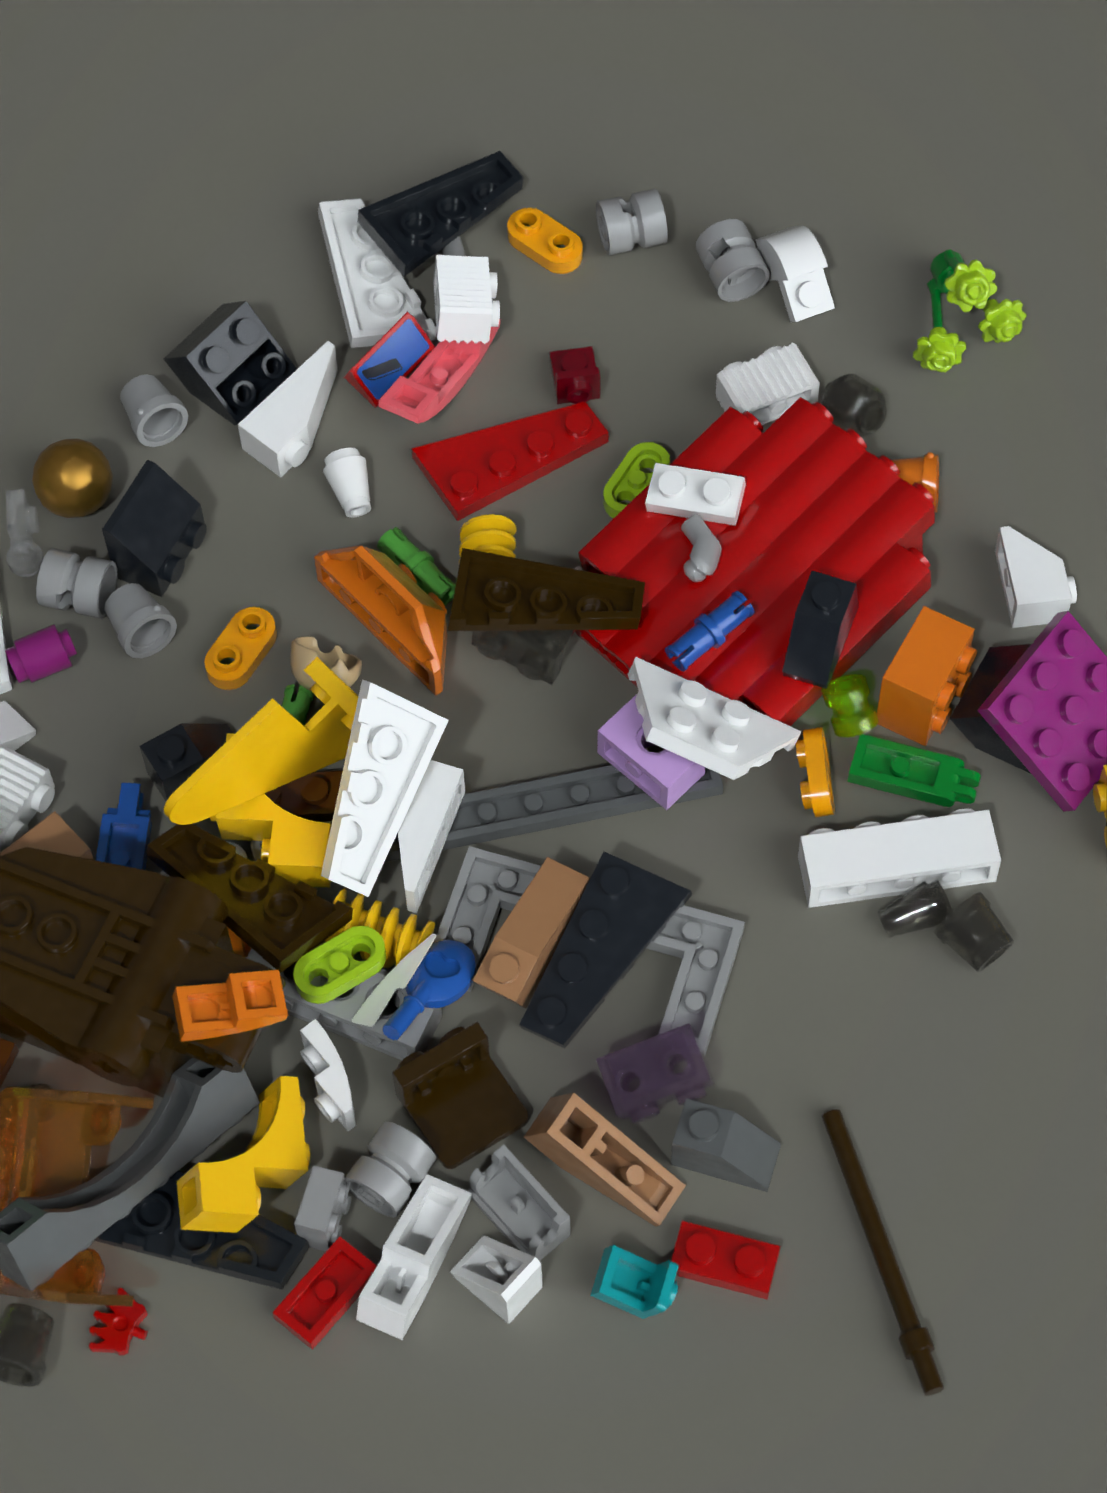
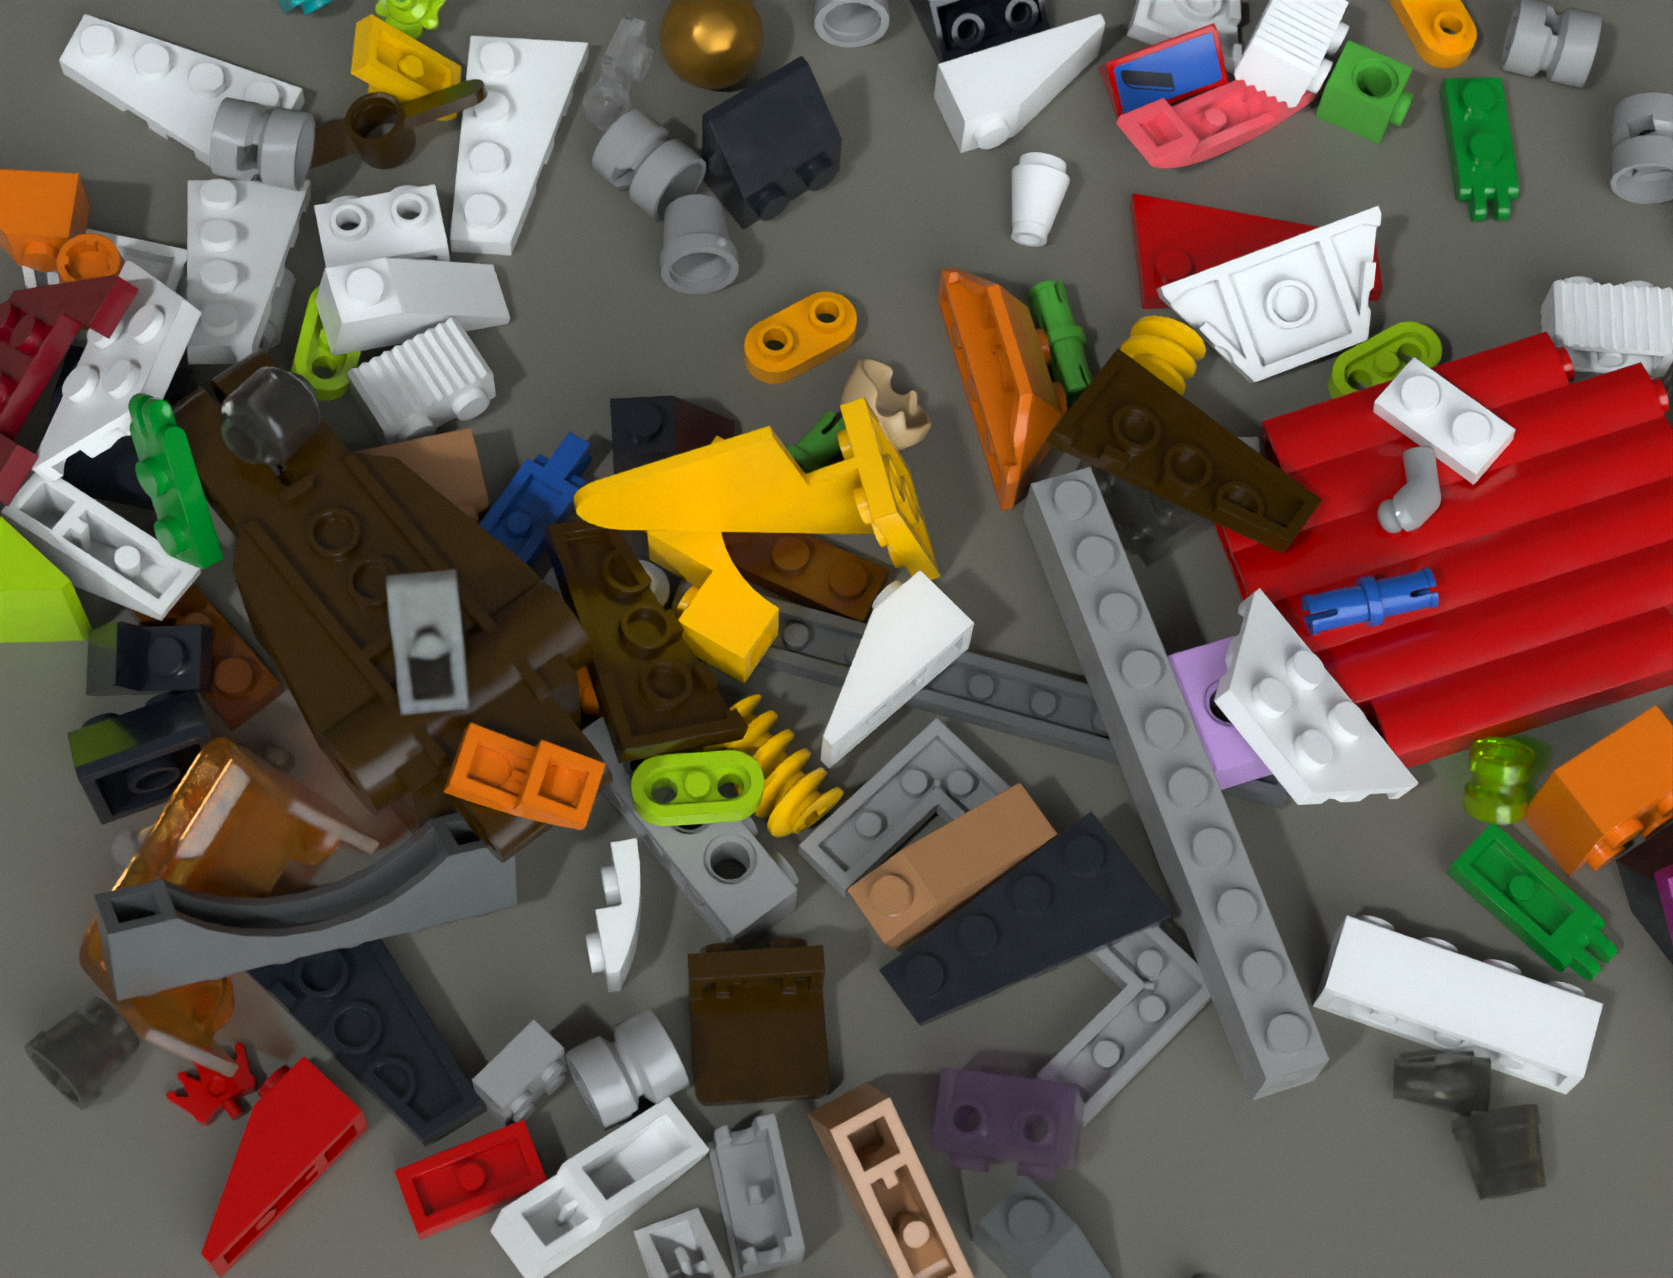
camera: 20 degrees right, 5 degrees up
(41, 654) = (563, 229): magenta brick -> none
(120, 948) = (428, 642): none -> clear smoke slope
(192, 1327) = (286, 1147): none -> red slope
(227, 1192) = (504, 981): yellow arch -> none
(379, 778) = (863, 583): white wing -> none
(396, 978) = (755, 840): white sticker -> none
(437, 982) = (801, 865): blue piece -> none
(529, 311) = (1364, 72): none -> bright green brick
(549, 468) = (1285, 299): none -> white wing
(575, 375) = (1383, 186): dark red bracket -> none
(620, 310) = (1479, 145): none -> green hinge
(645, 808) = (1174, 787): none -> light grey brick
(818, 790) = (1420, 820): light orange plate -> none
(820, 629) = (1508, 669): black slope -> none

